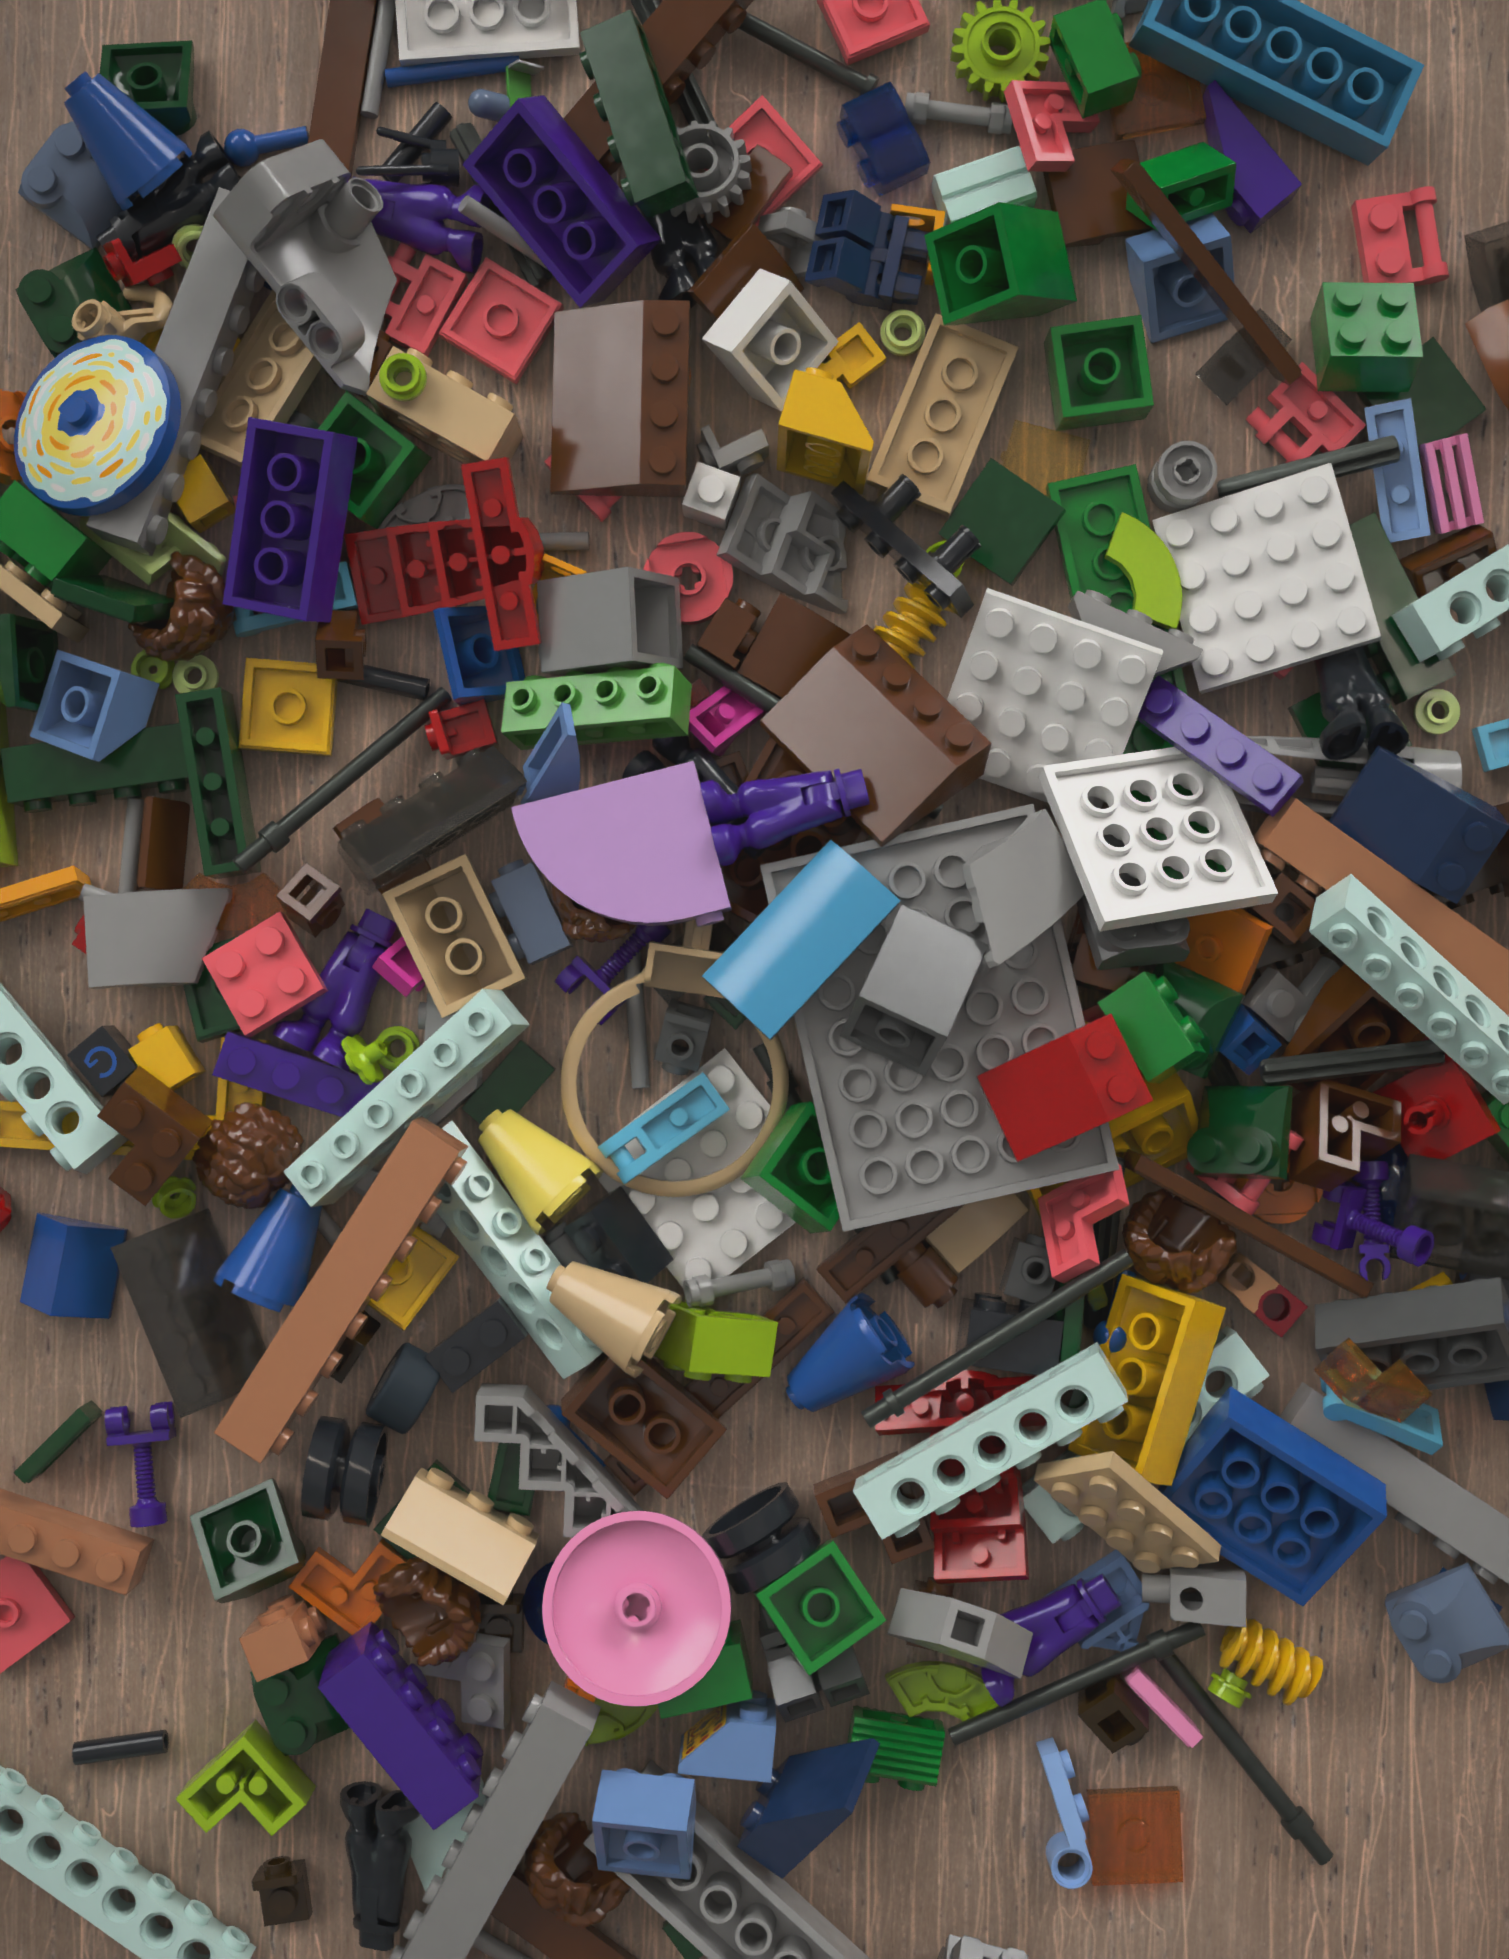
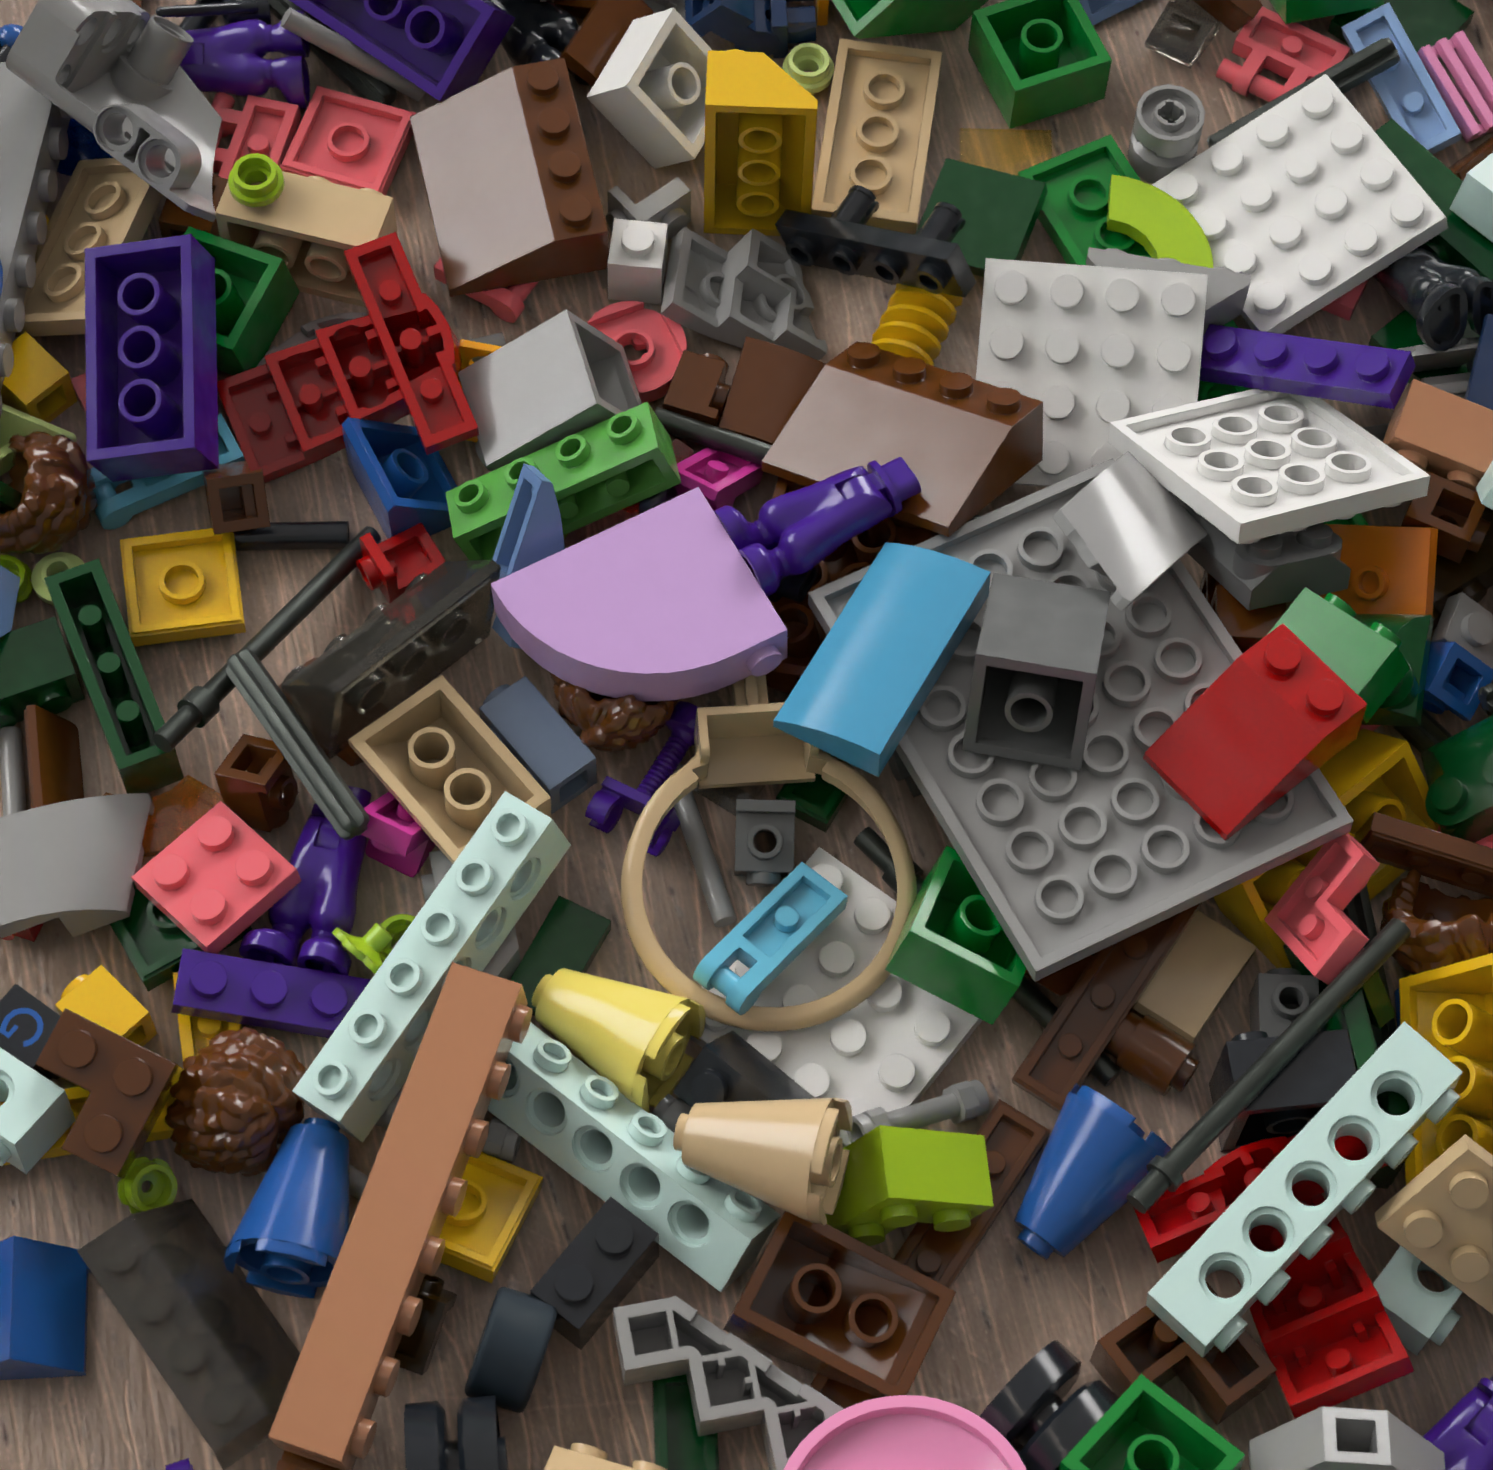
camera: 15 degrees left, 25 degrees down
(340, 891) = (297, 744): none -> pearl dark grey axle

